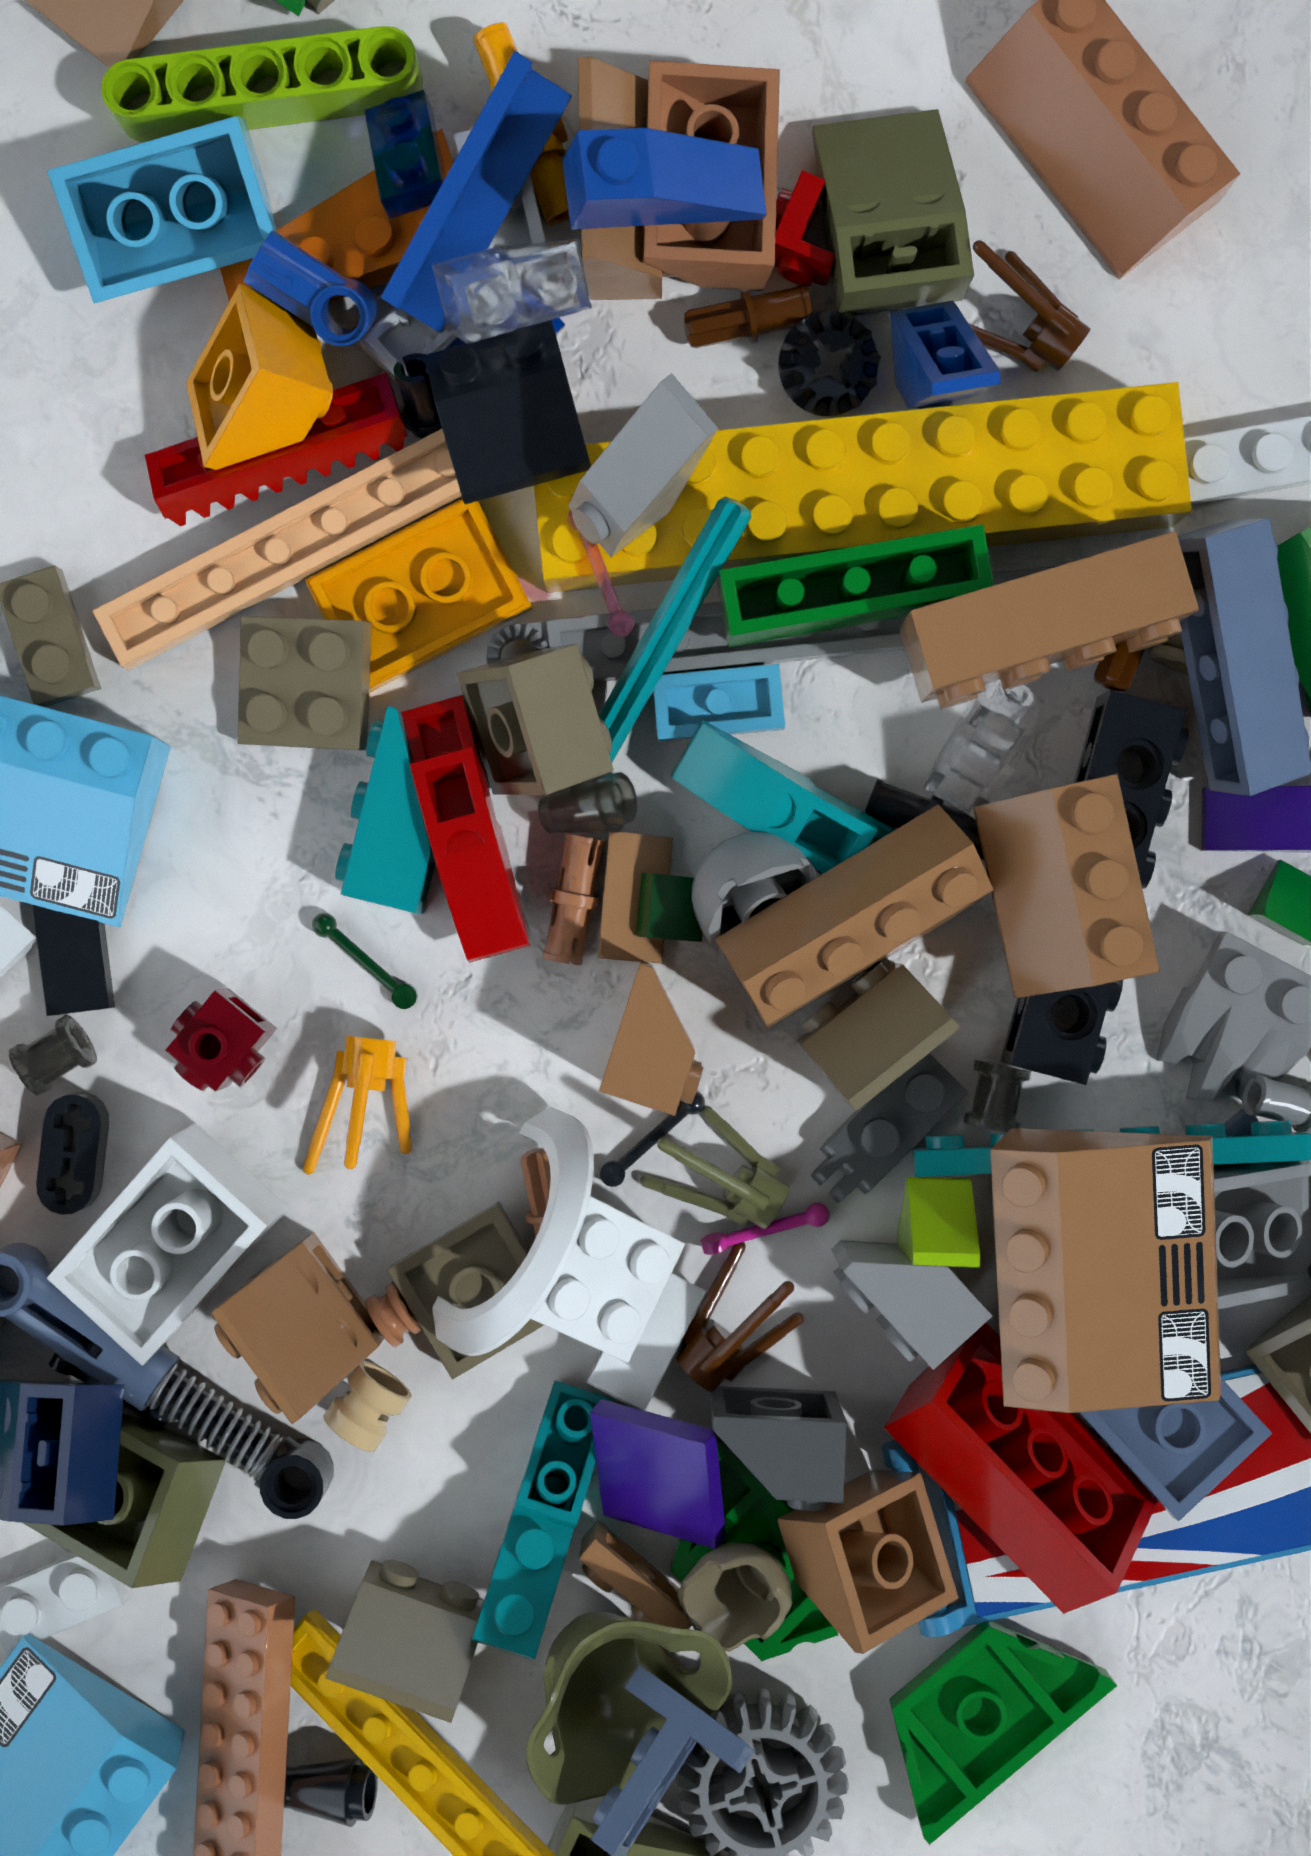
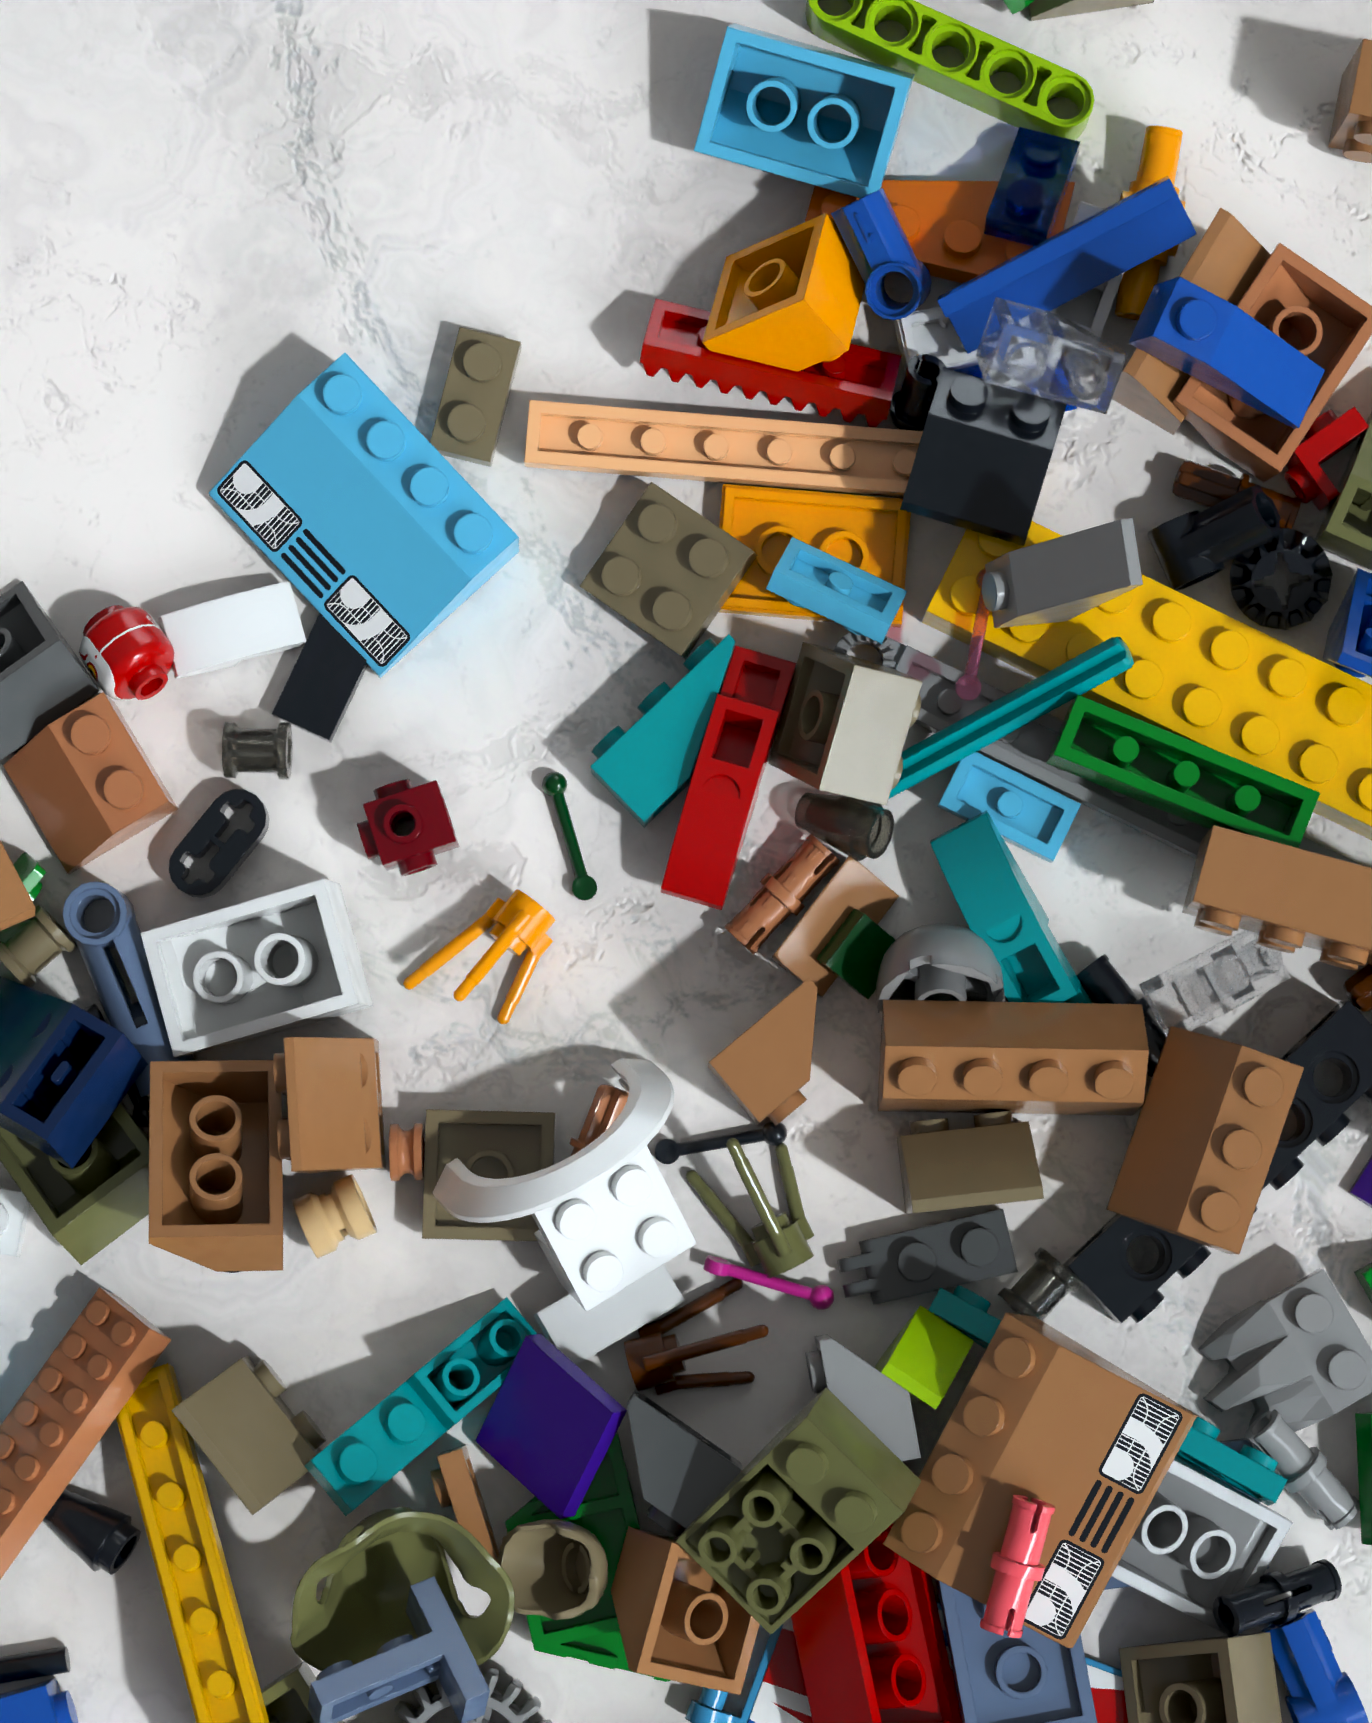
camera: 30 degrees right, 5 degrees down
(225, 1453) = (216, 1163): none -> medium nougat slope
(456, 610) = (836, 590): none -> medium azure plate
(741, 375) = (1200, 542): none -> black piece
(920, 1429) = (800, 1511): none -> olive slope
(1137, 1365) = (1017, 1566): none -> coral pin

